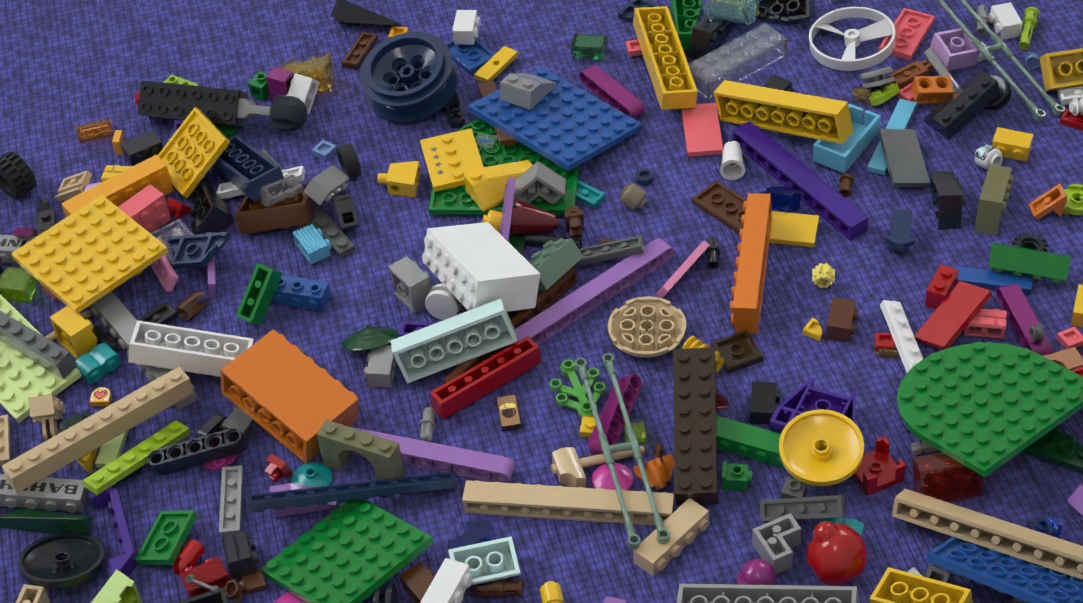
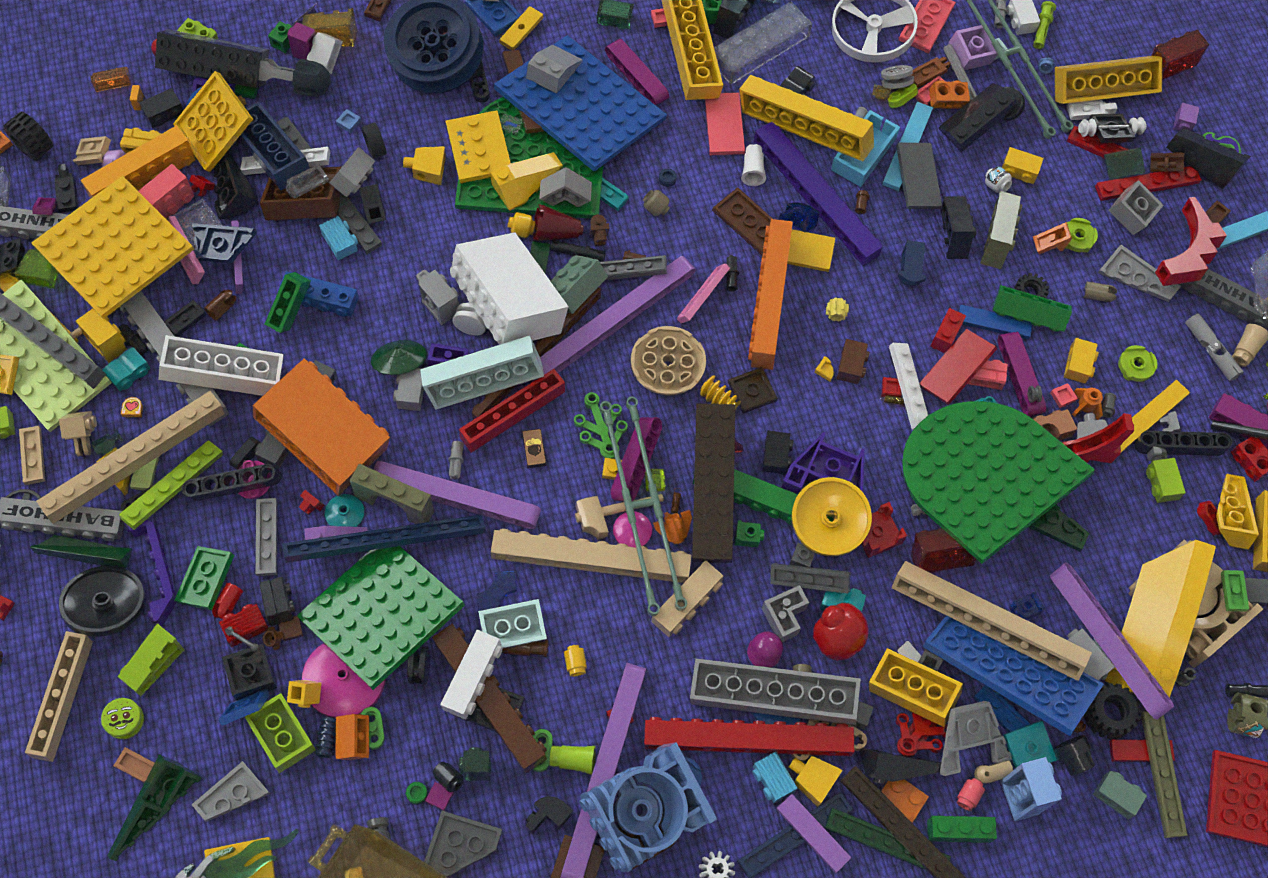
camera: 10 degrees left, 20 degrees up
(507, 208) = (533, 220): medium lavender tile -> none

